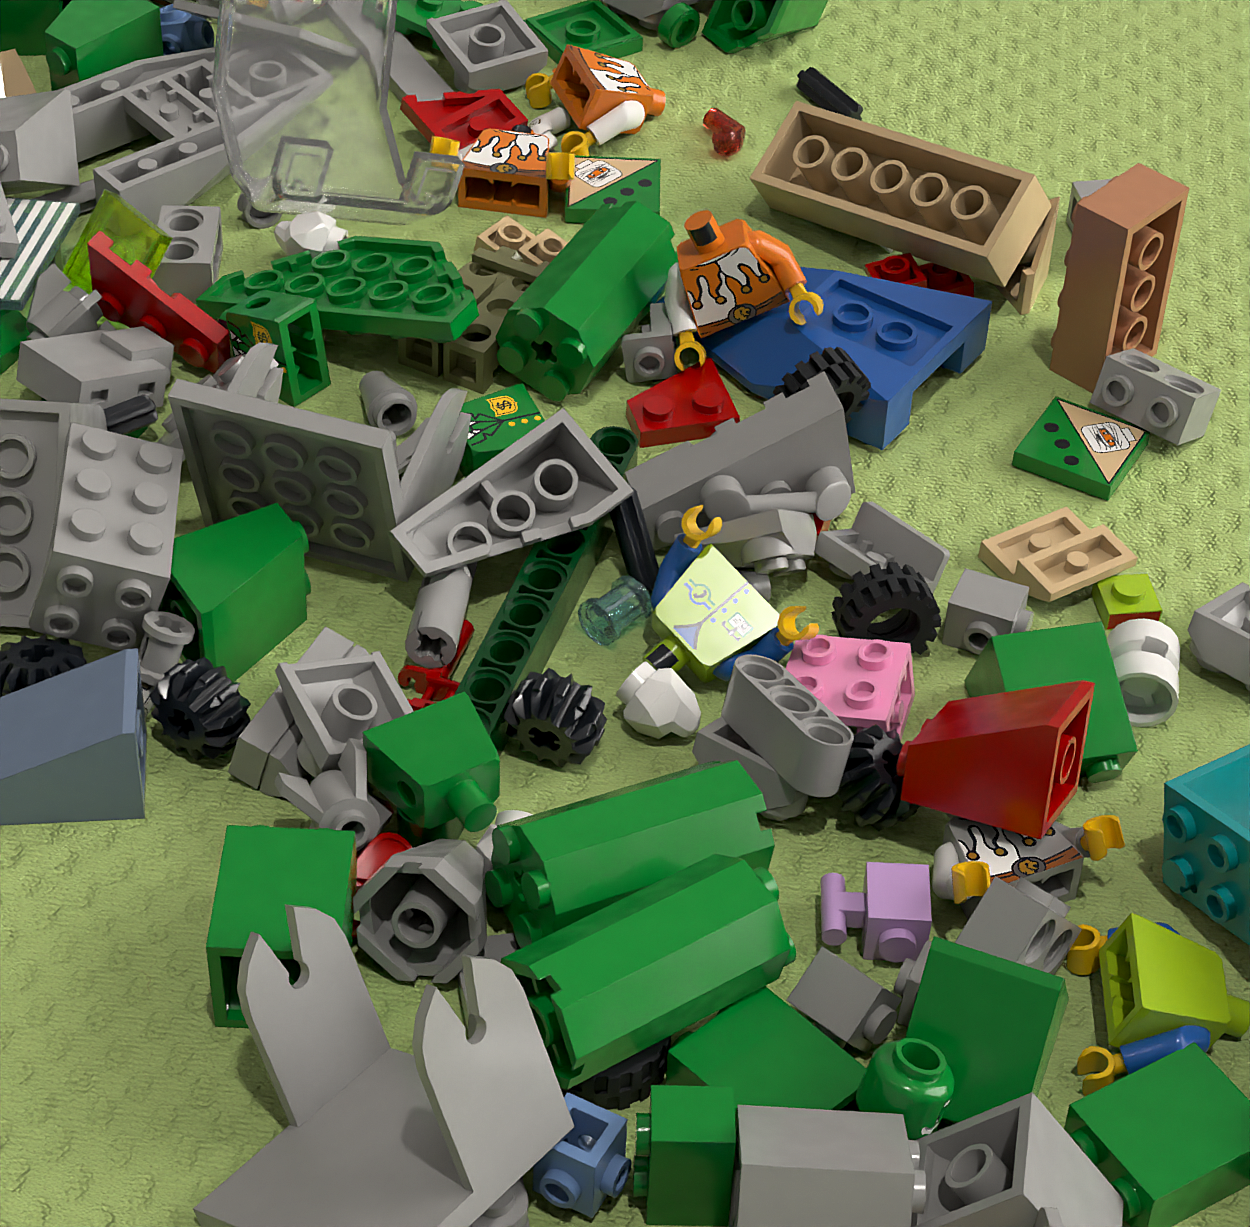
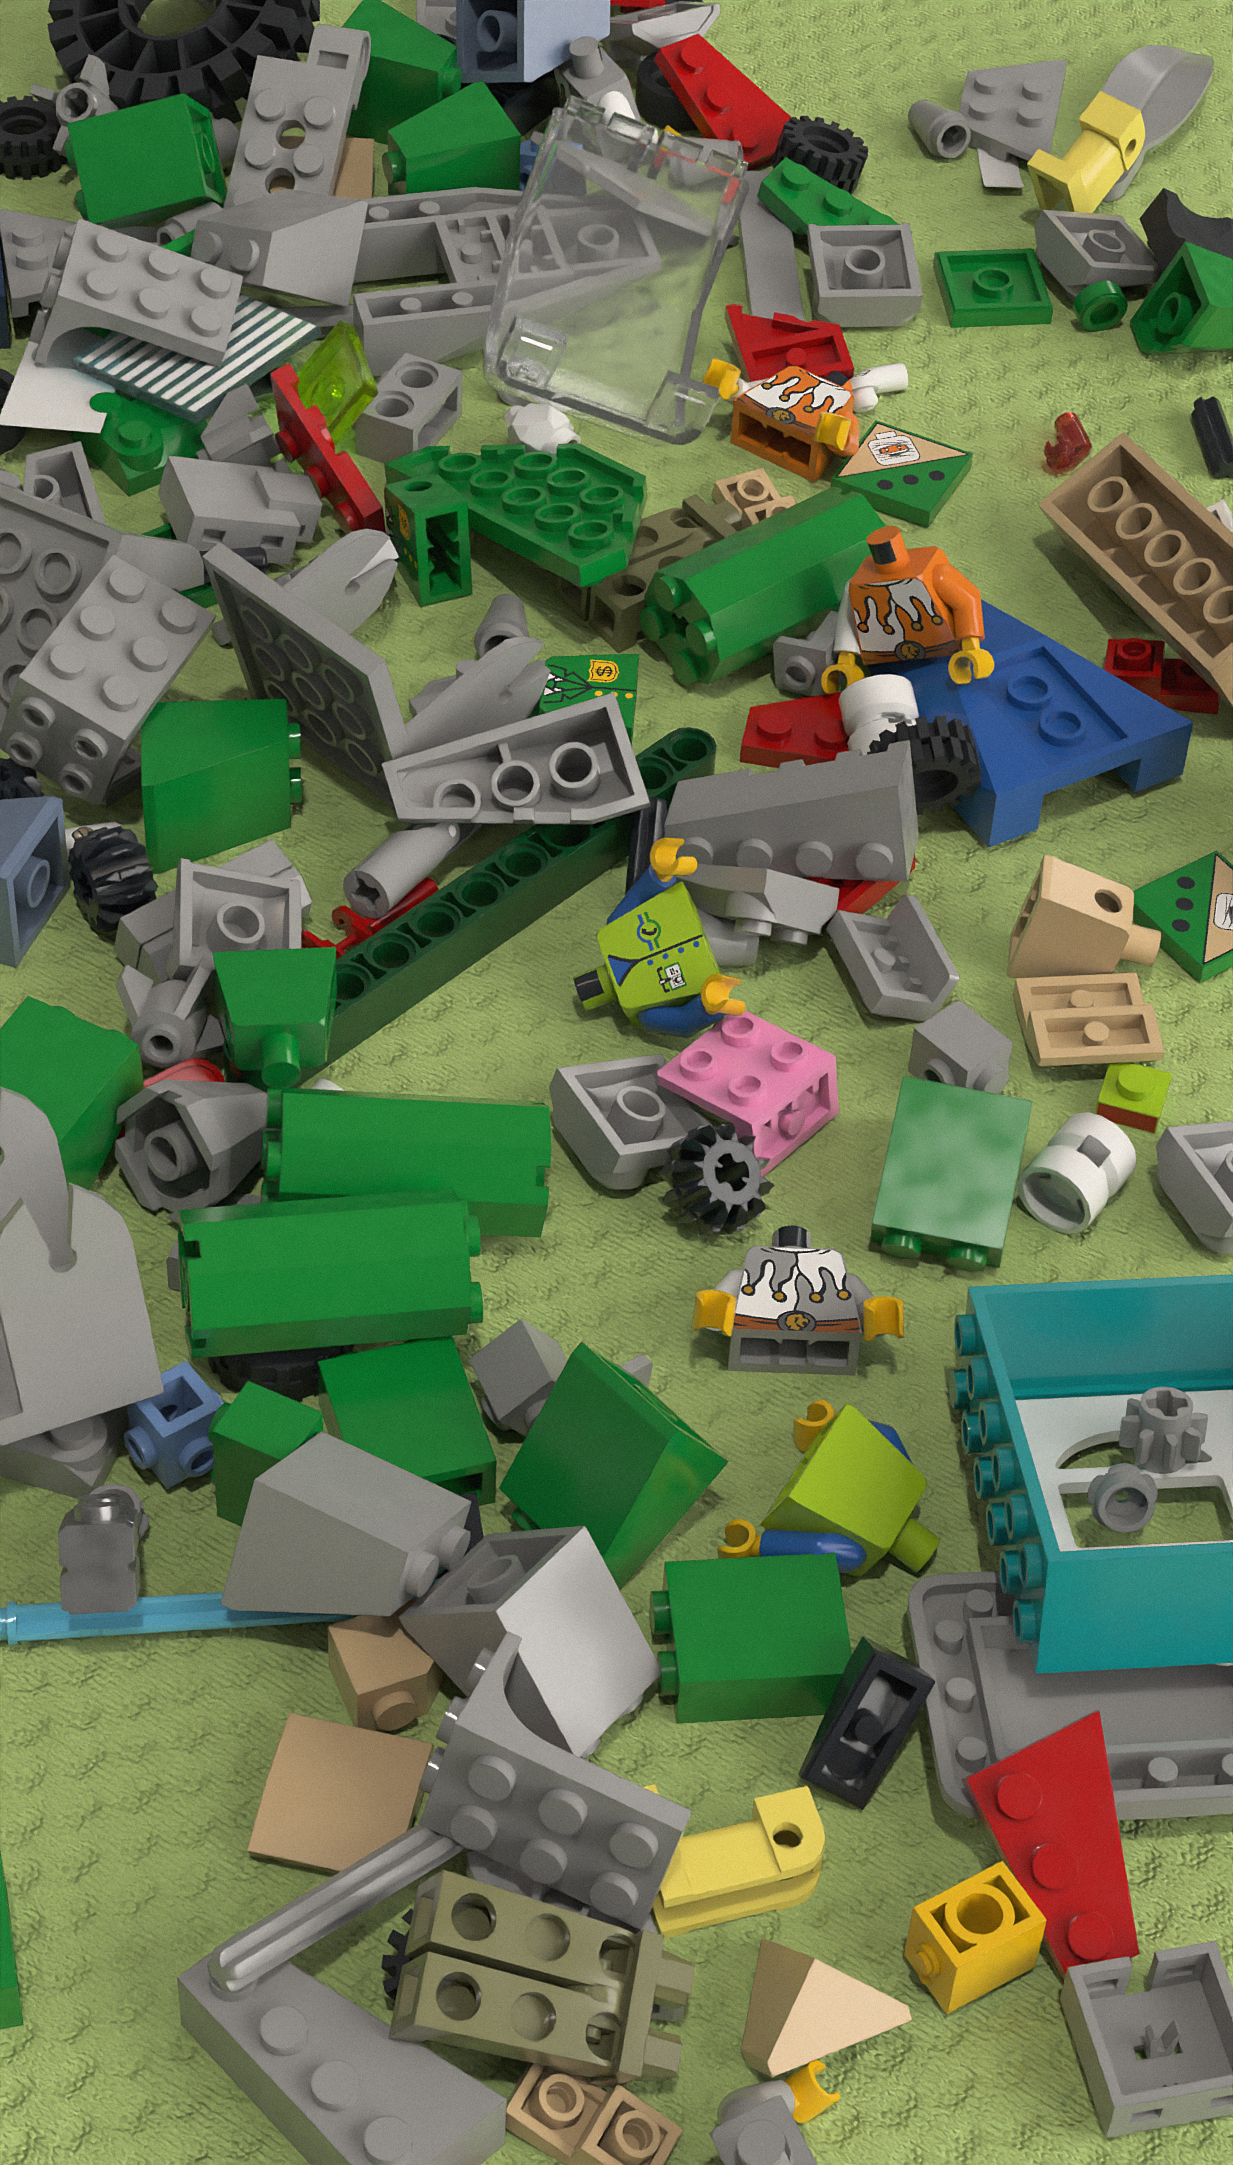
camera: 25 degrees right, 5 degrees up
(162, 644) = (107, 803): light grey bush -> none
(555, 717) = (439, 1006): black gear -> none
(599, 94) = (947, 365): torso -> none
(609, 614) = (578, 920): clear light blue bush -> none
(659, 702) = (559, 1025): white rock -> none
(746, 373) = (875, 706): none -> white wheel
(787, 725) = (641, 1093): light grey beam -> none
(824, 494) = (858, 879): light grey bar -> none
(884, 591) = (849, 994): black tyre -> none
(890, 910) = (638, 1316): lavender brick -> none
(908, 1080) = (503, 1478): green head -> none
(1001, 757) = (829, 1204): red slope -> none
(1004, 485) = (1076, 925): none -> tan torso
(1021, 926) = (732, 1382): light grey brick -> none

